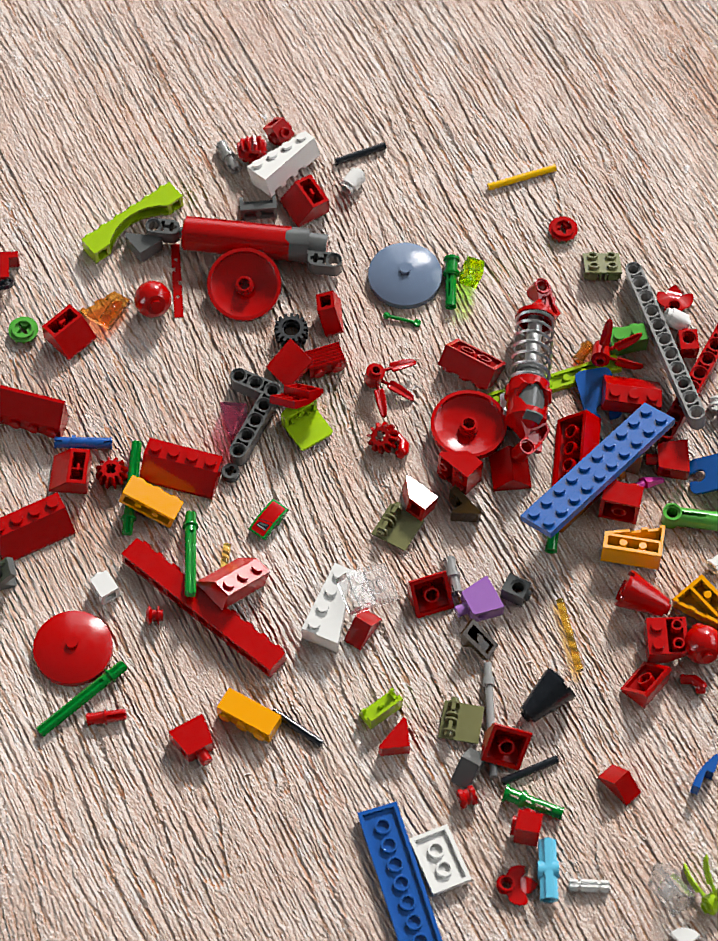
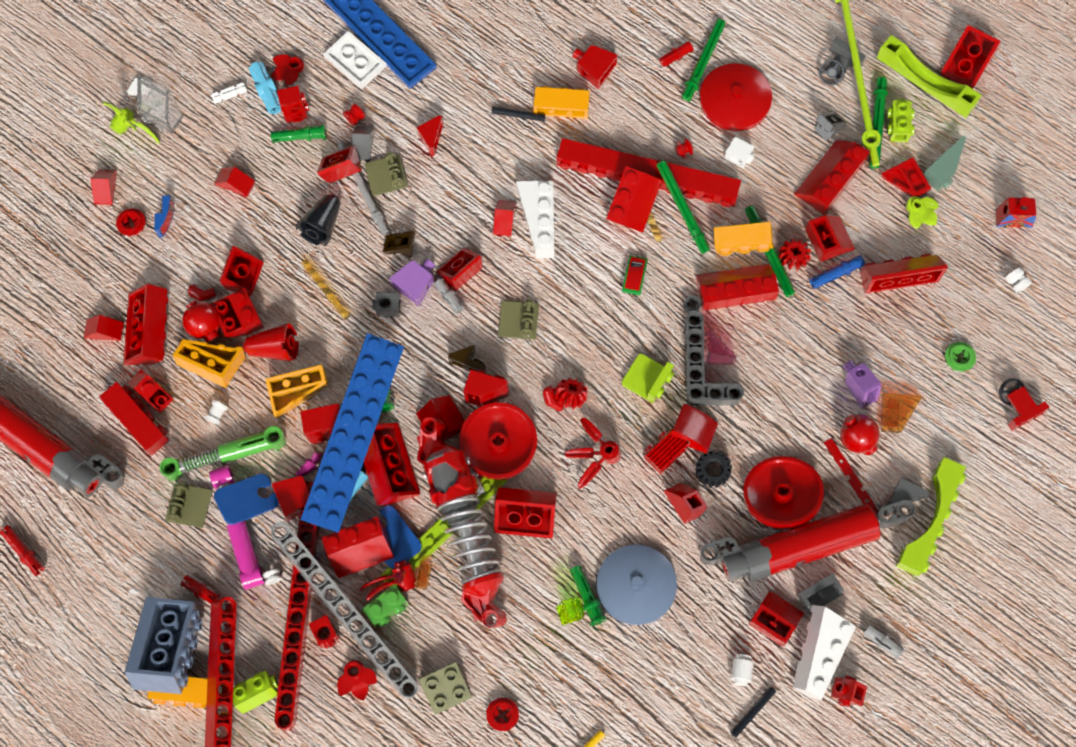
camera: 160 degrees right, 10 degrees up
(68, 332) = (916, 367): red slope -> none
(124, 338) = (862, 383): none -> medium lavender torso
(251, 148) = (863, 655): red gear -> none
(296, 396) = (668, 387): red slope -> none
(367, 588) = (512, 240): clear slope -> none
(381, 709) = (456, 155): lime hinge -> none
(416, 322) = (599, 537): green hinge -> none
(418, 499) = (511, 347): slope -> none
(530, 770) = (312, 161): black bar -> none
(676, 319) = (344, 653): white brick -> none

